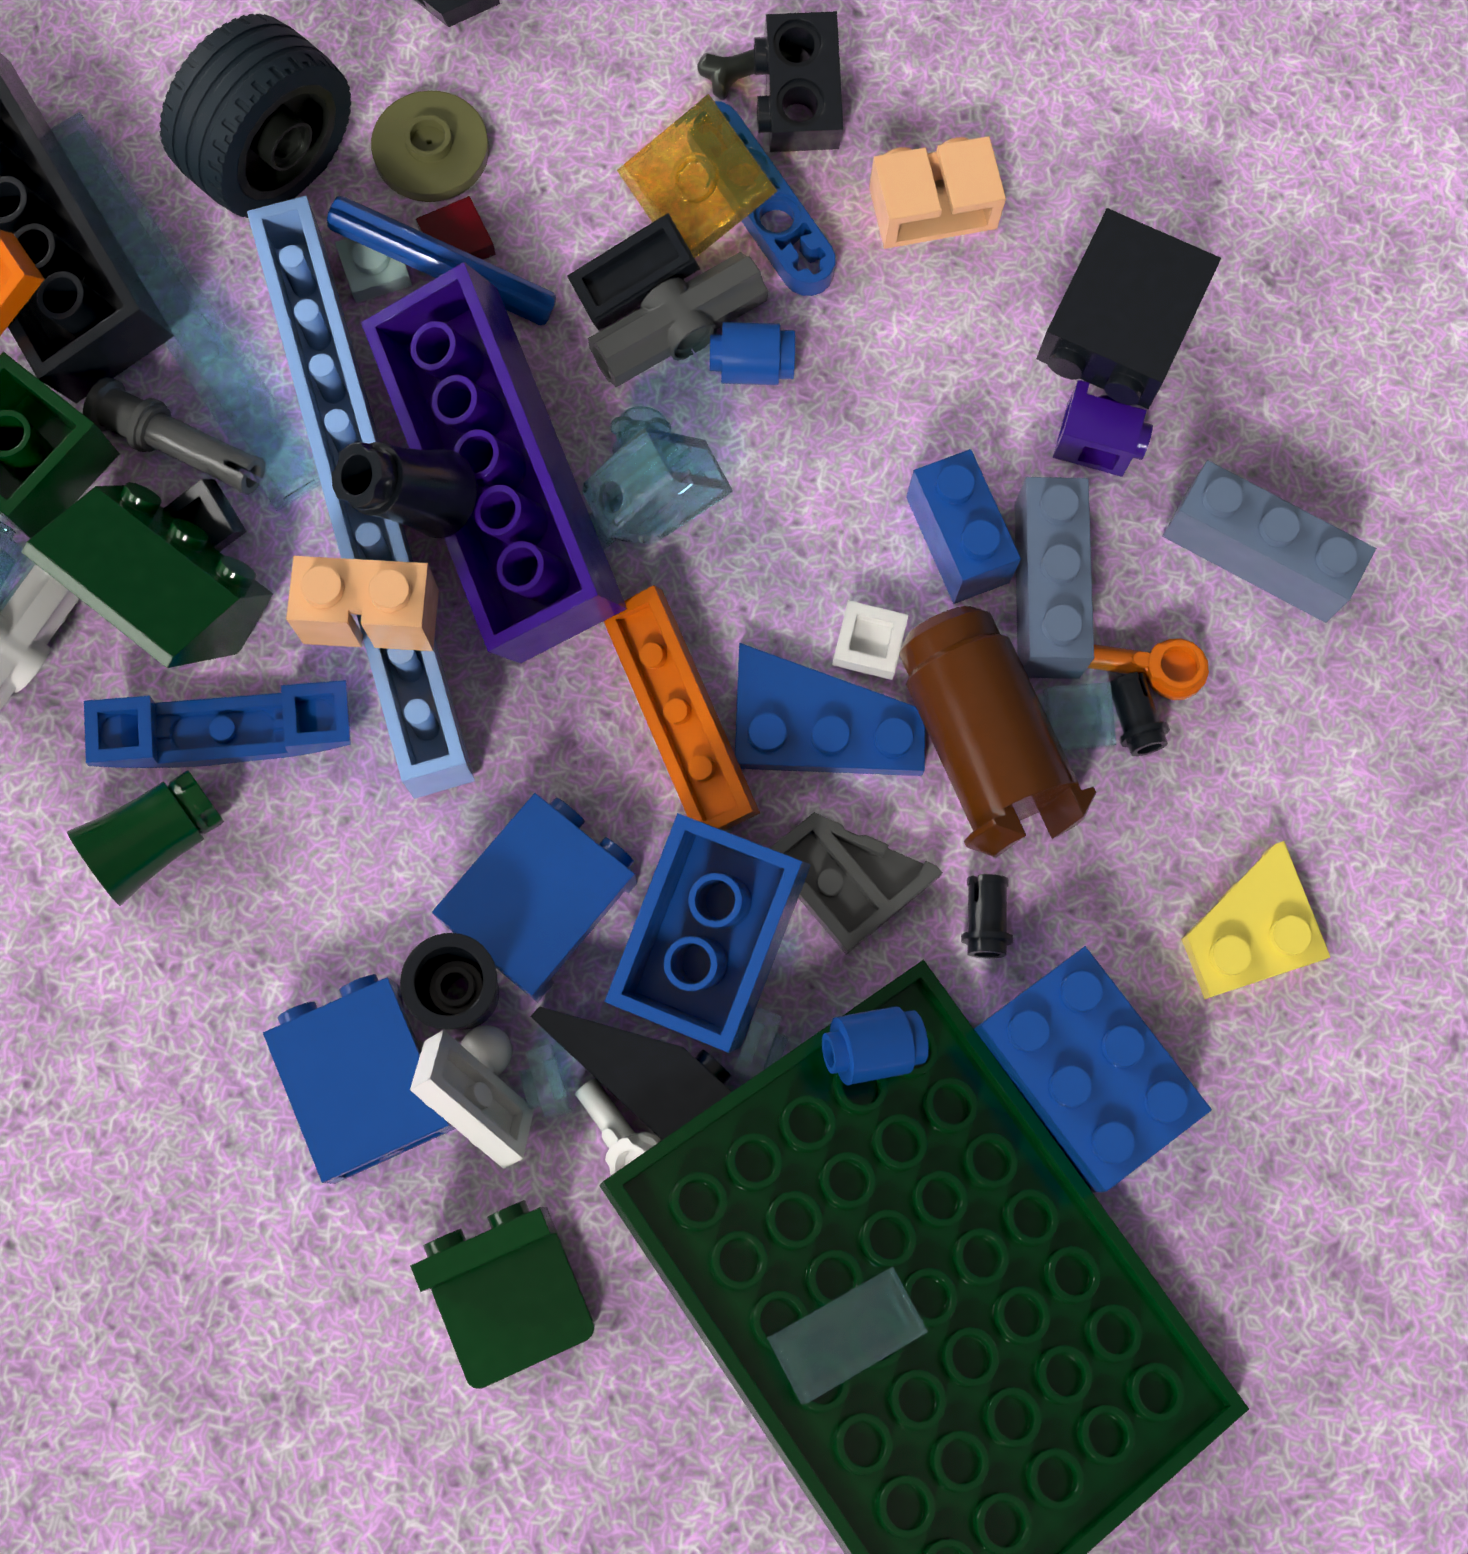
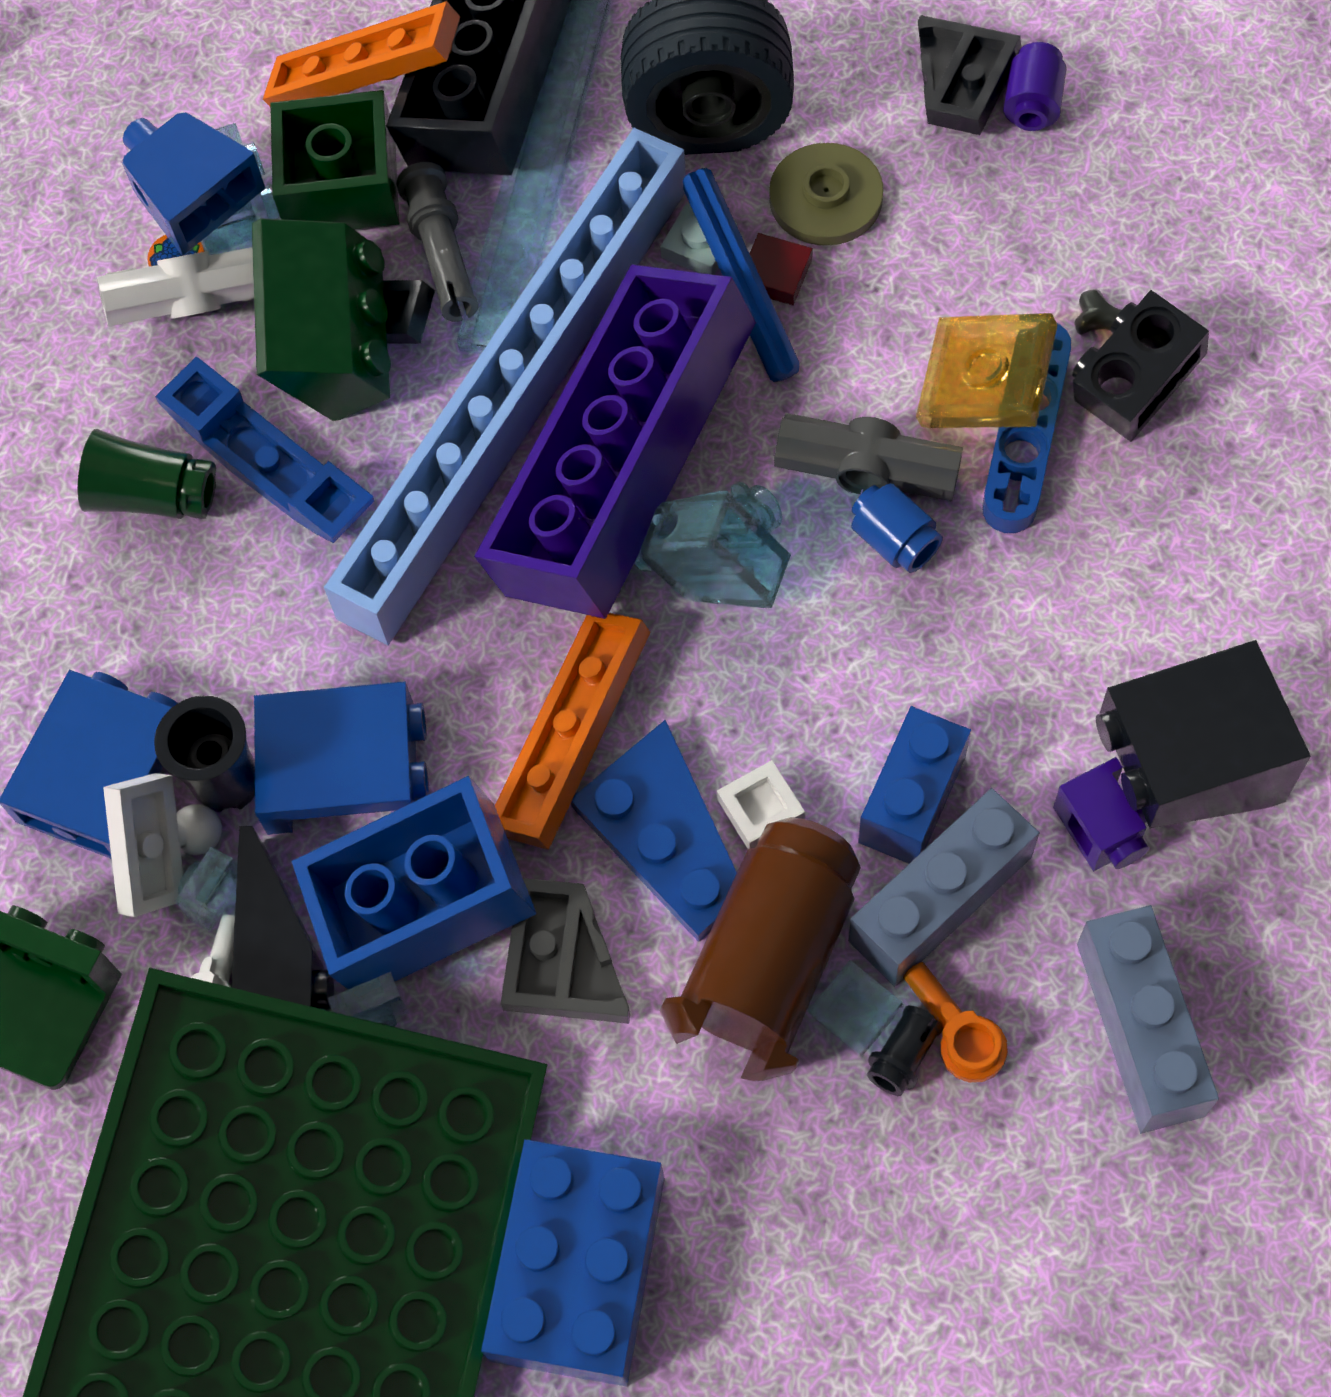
camera: 55 degrees right, 10 degrees down
(391, 596) = (431, 452): light nougat piece -> none
(406, 485) = (527, 390): black plant -> none
(631, 270) = (858, 390): black tile -> none
(847, 1335) = (188, 1243): clear light blue tile -> none
(875, 1044) = (431, 1073): blue brick -> none
(936, 193) = (1162, 531): light nougat piece -> none
(987, 917) = (629, 1084): black pin -> none
(1256, 929) = (823, 1300): light yellow wing -> none

